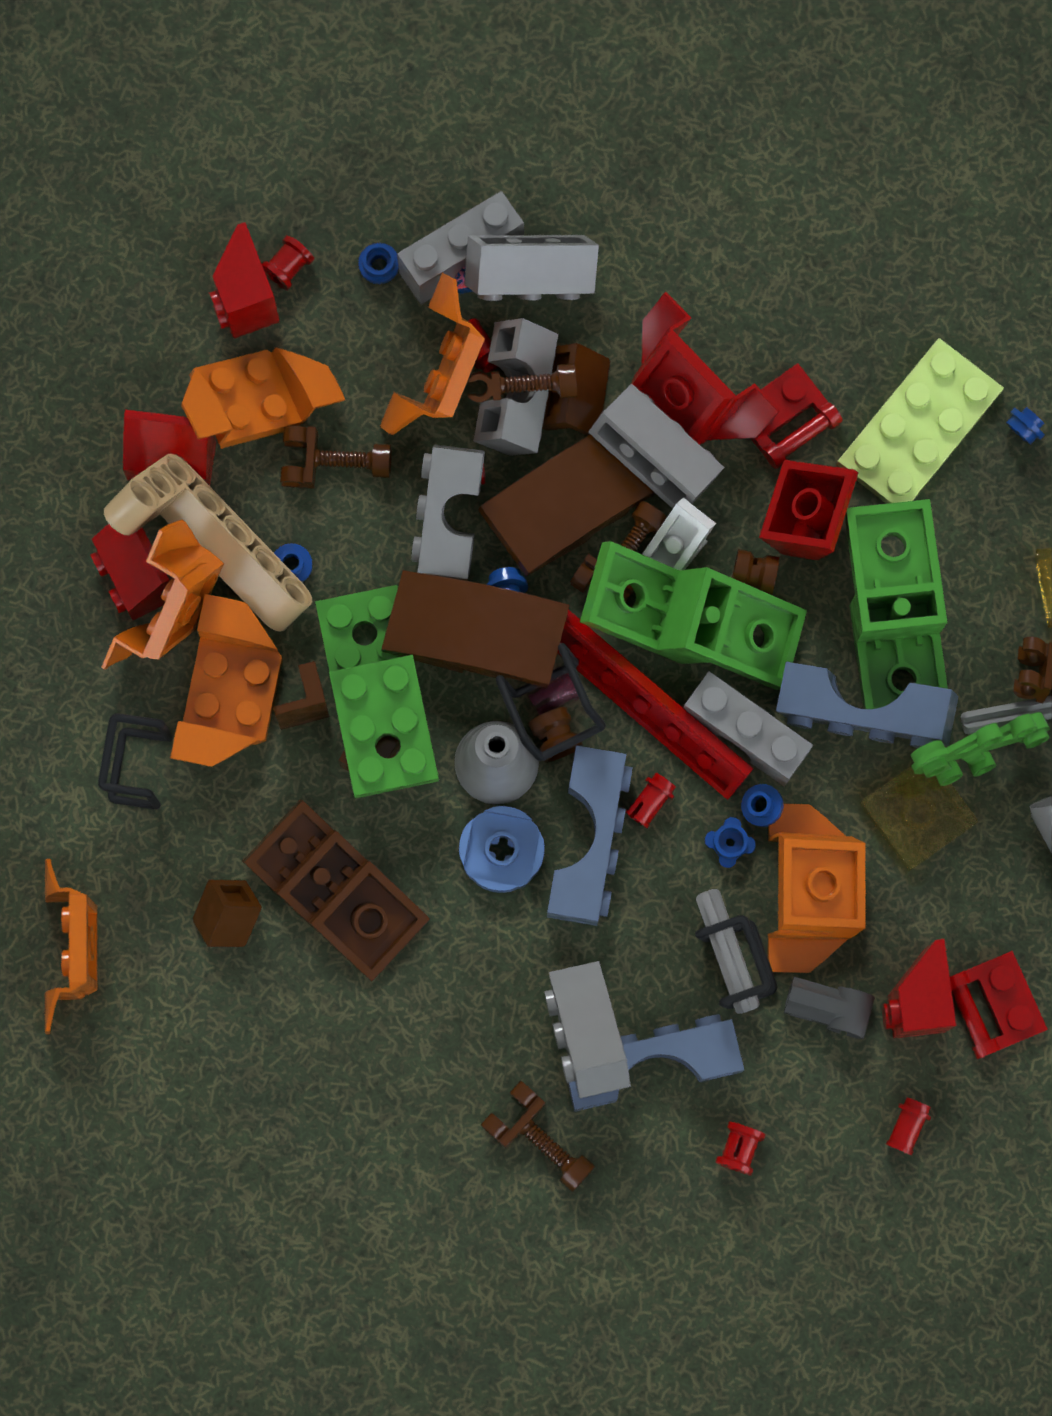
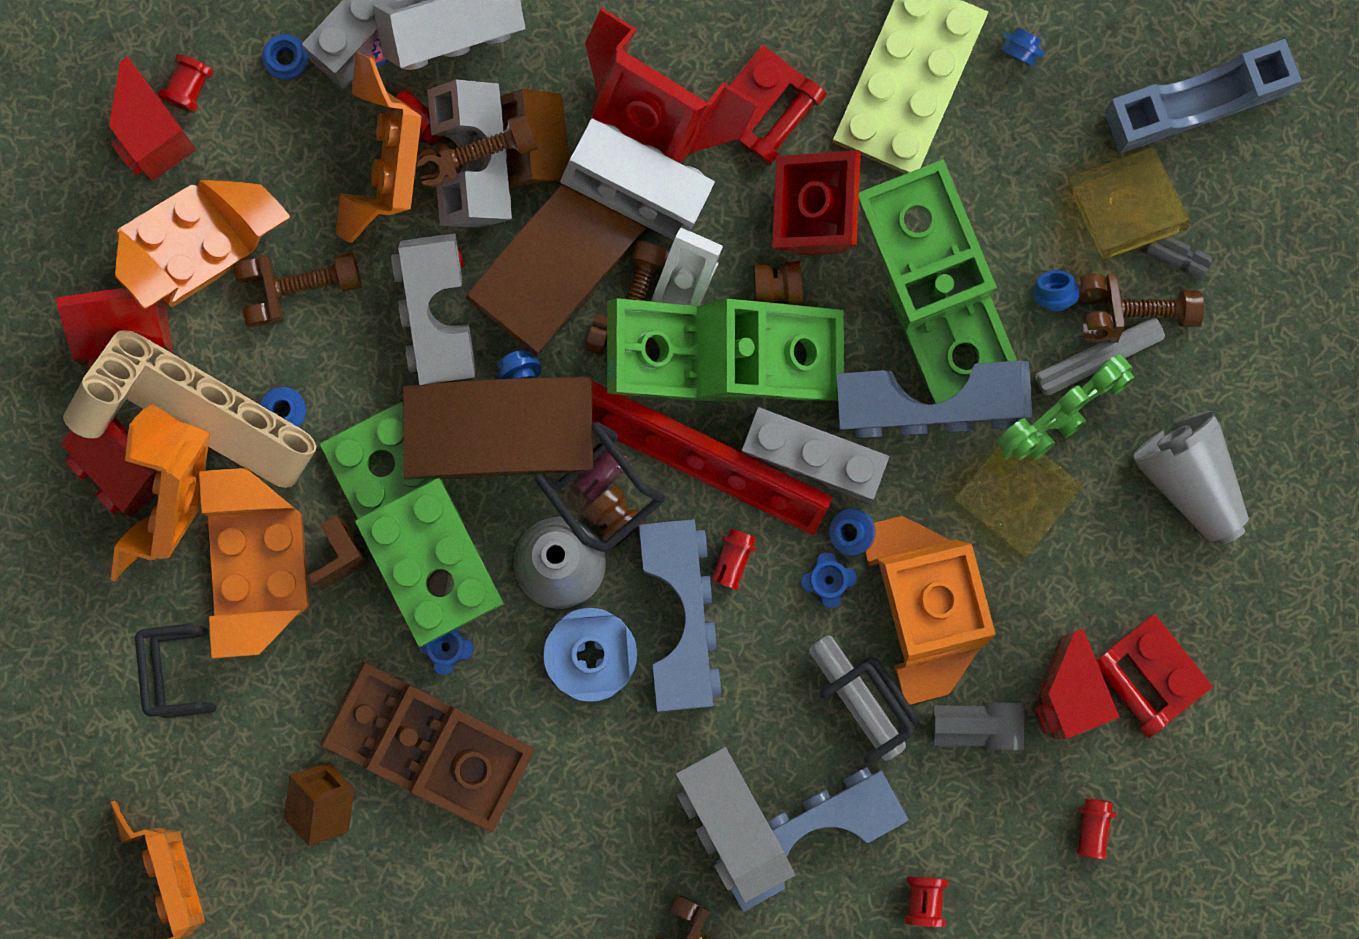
camera: 15 degrees left, 5 degrees up
(372, 819) = (445, 660): none -> blue plate
(999, 644) = (1056, 290): none -> blue plate

